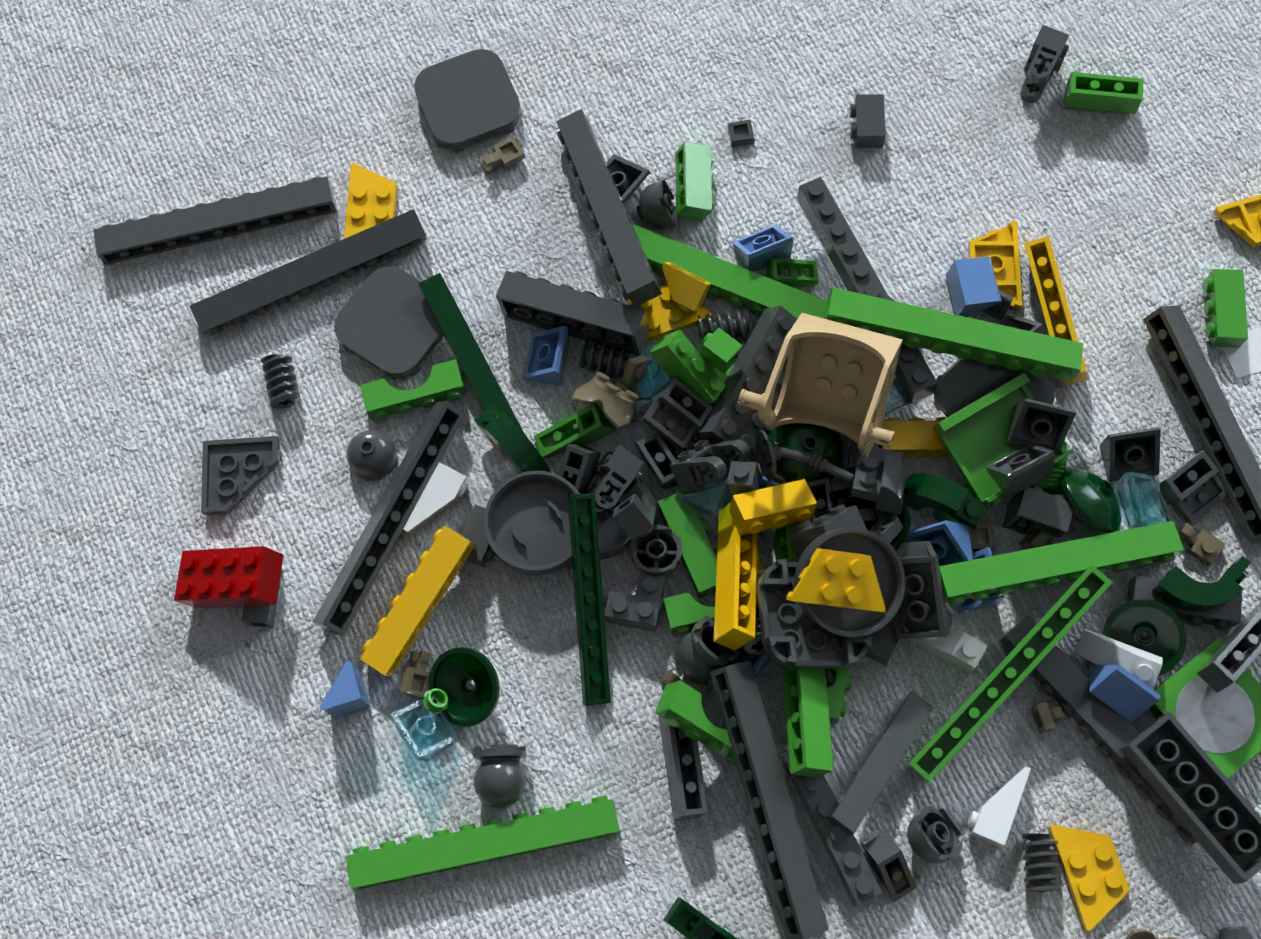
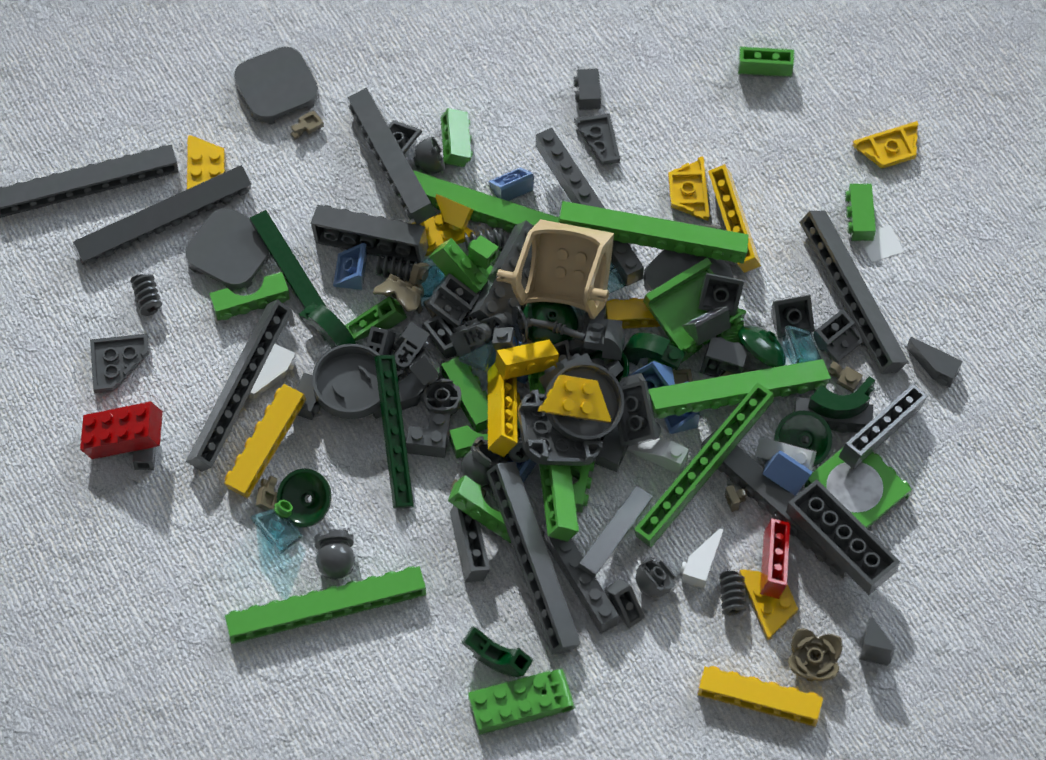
camera: 10 degrees left, 10 degrees down
(347, 693) = (216, 507): medium blue slope -> none
(371, 455) = (220, 344): dark grey cylinder -> none
(740, 133) = (490, 102): dark grey tile -> none
(789, 264) = (526, 196): bright green slope -> none
(881, 187) = (600, 137): none -> dark grey wing
(972, 285) = (671, 201): medium blue slope -> none
(1000, 309) = (690, 215): dark grey tile -> none
(1043, 60) = (720, 40): dark grey brick -> none
(1103, 819) = (775, 558): none -> red brick

